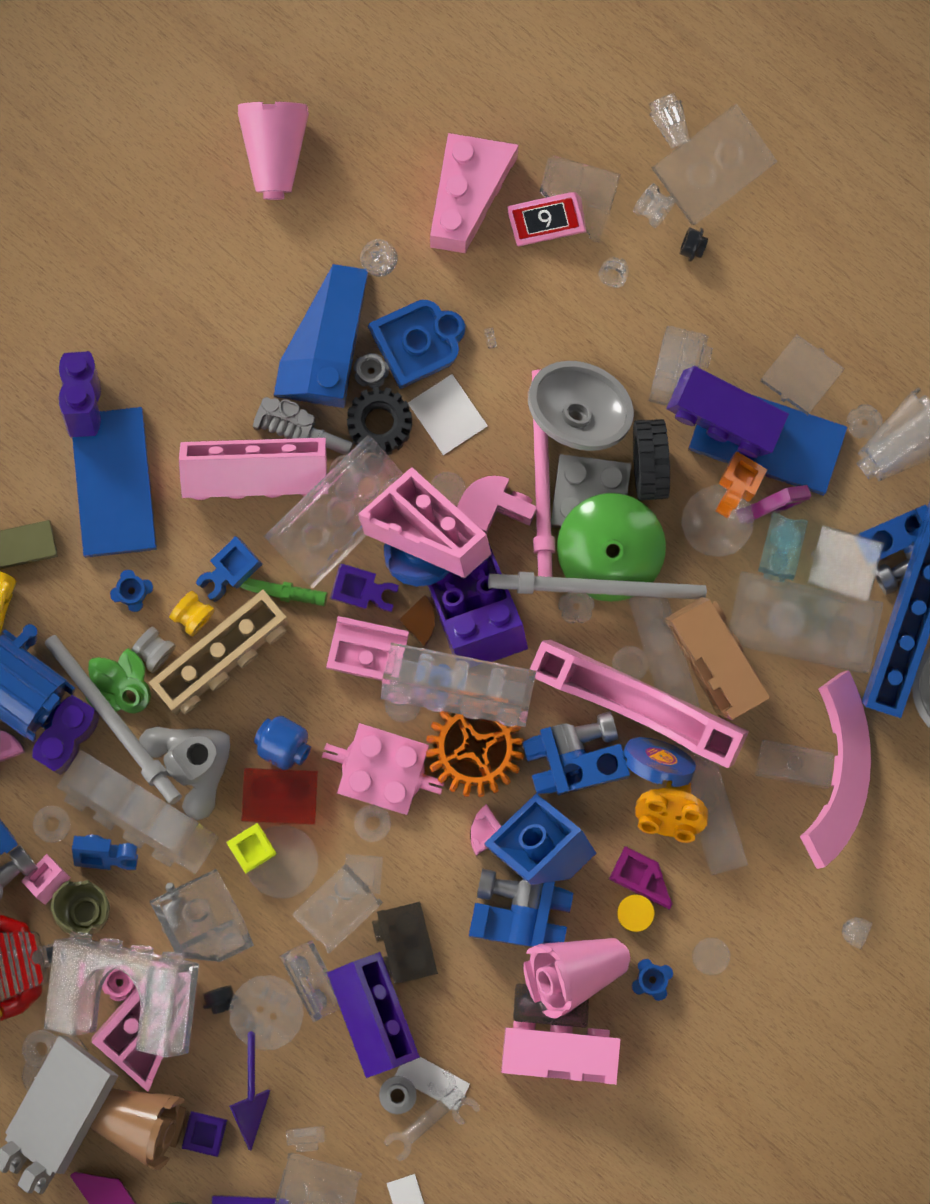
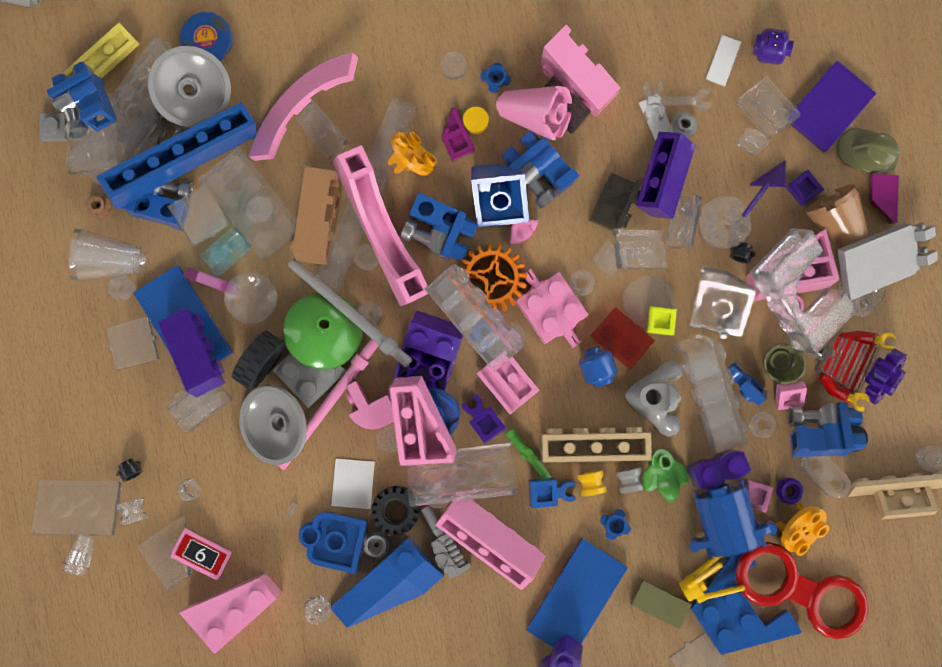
camera: 135 degrees left, 5 degrees up
(152, 769) = (688, 405): light grey bar -> none
(420, 620) = (464, 375): reddish brown tile -> none
(659, 761) = (396, 185): blue tile -> none
(741, 480) = (217, 307): orange plate -> none
(856, 931) = (363, 14): clear hinge -> none

